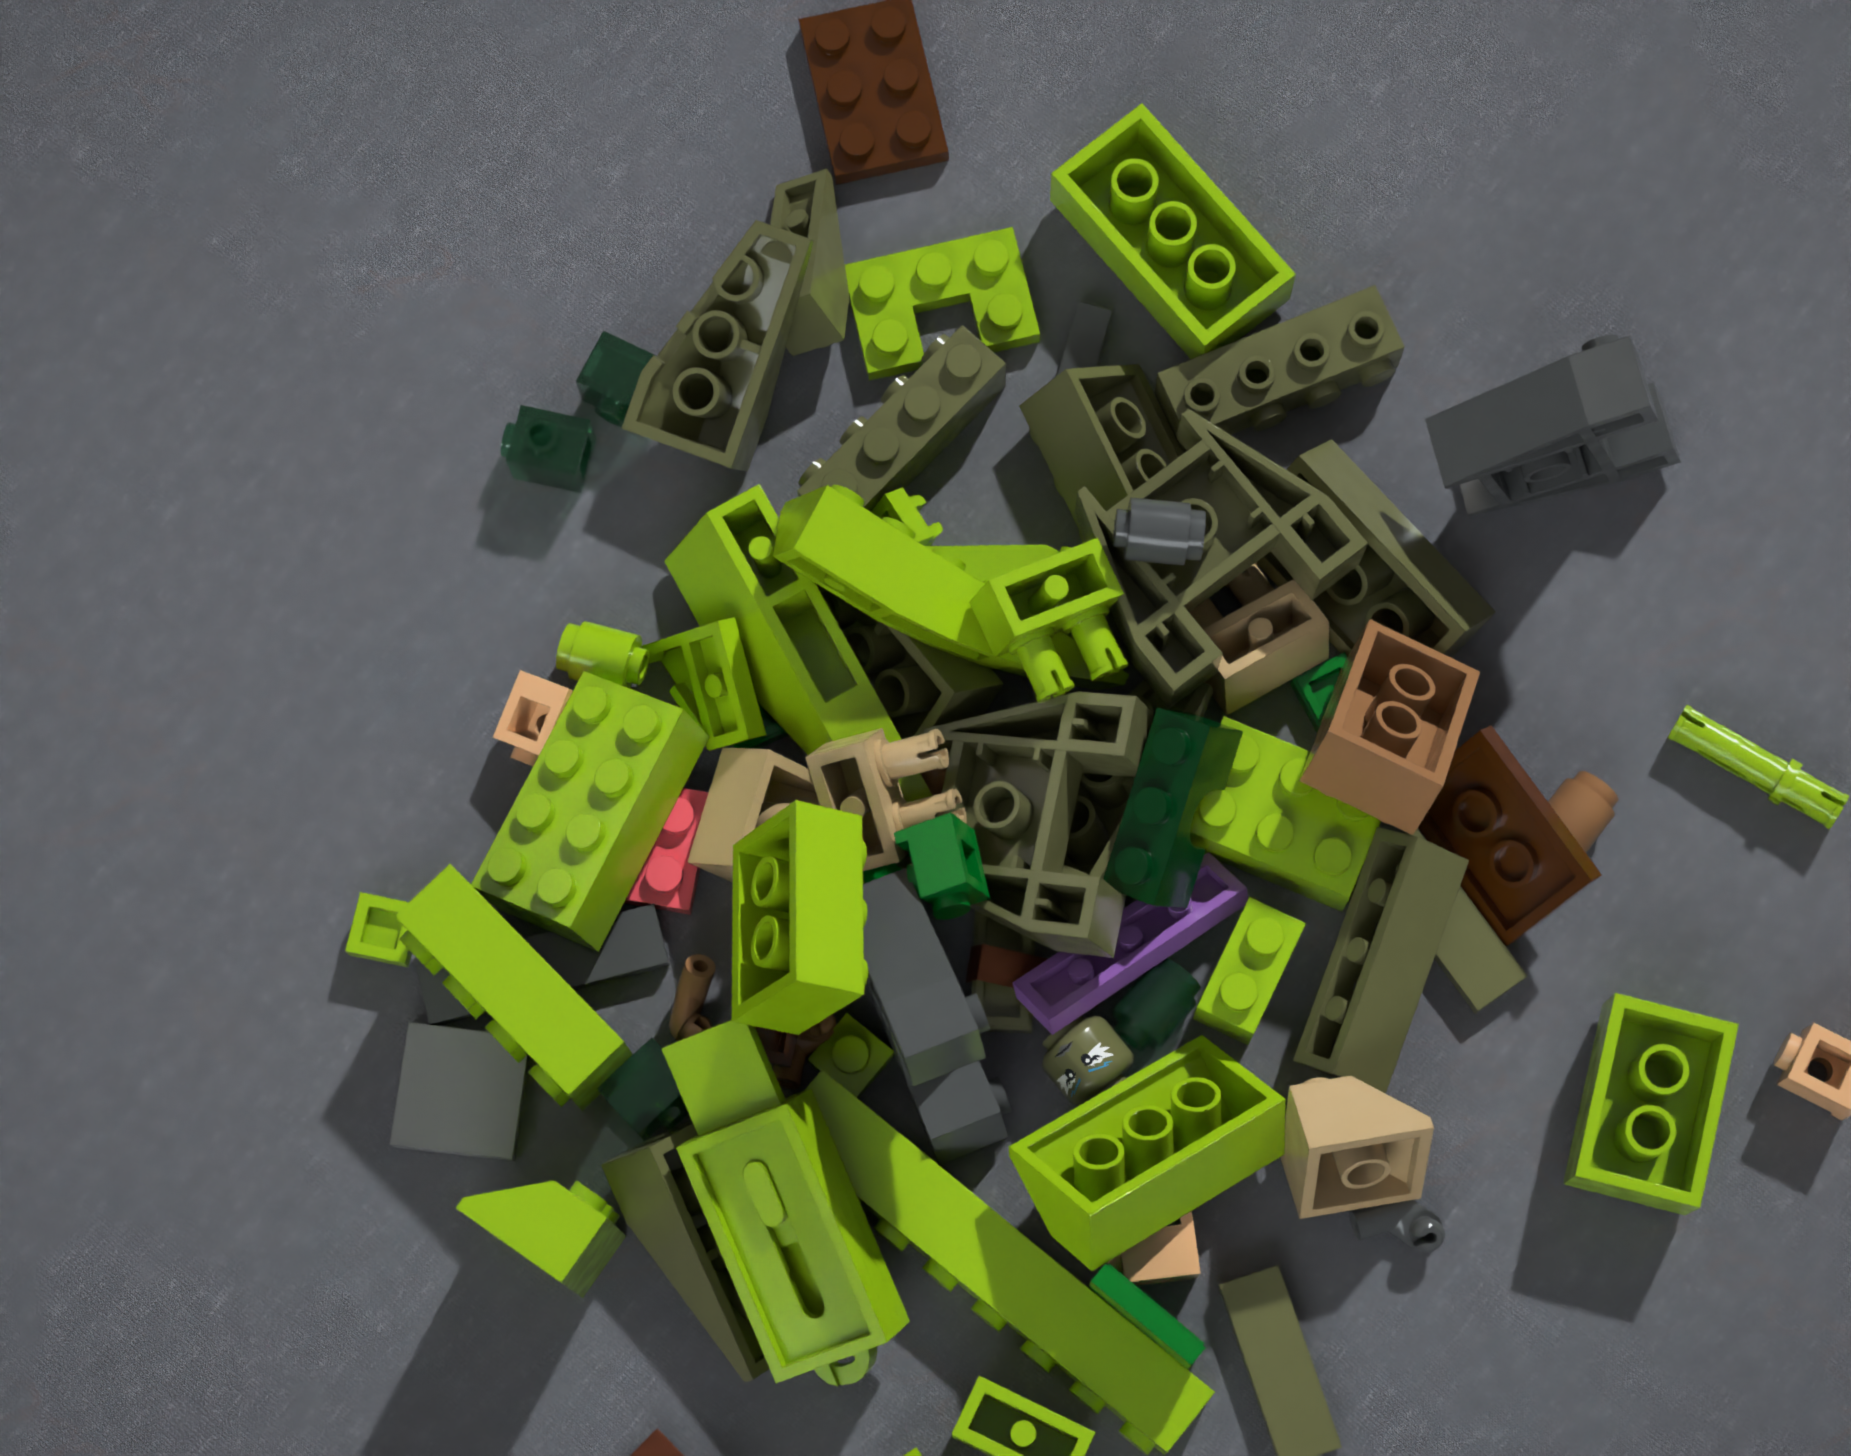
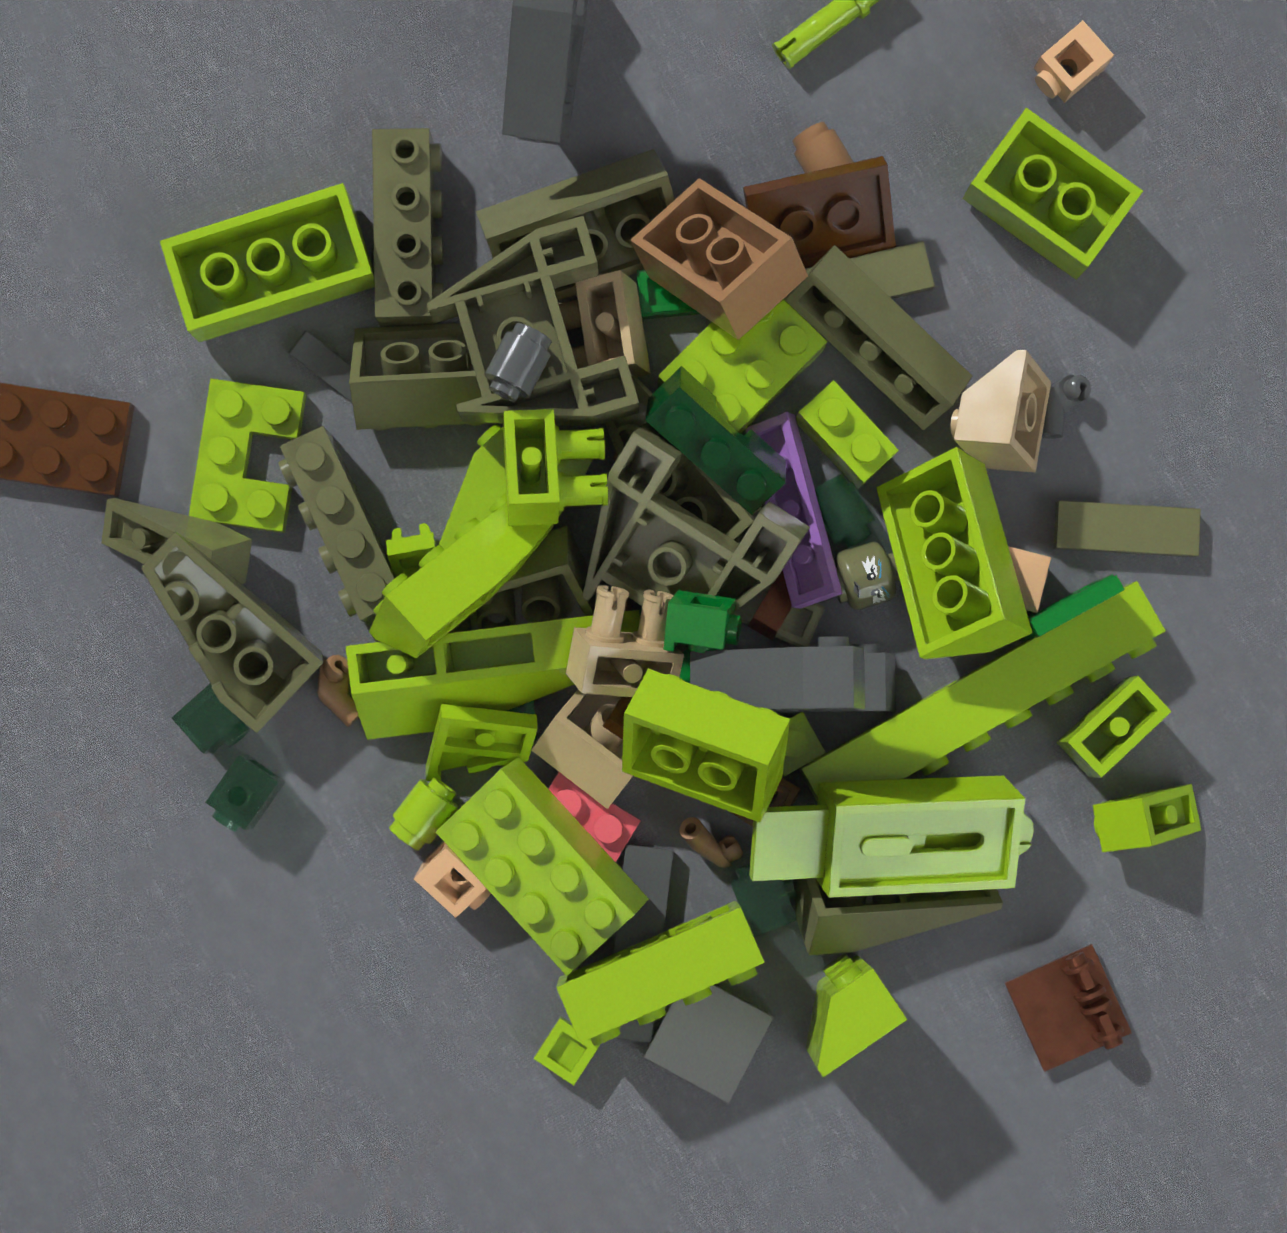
camera: 75 degrees left, 10 degrees up
(703, 499) = (333, 689): none -> medium nougat arm

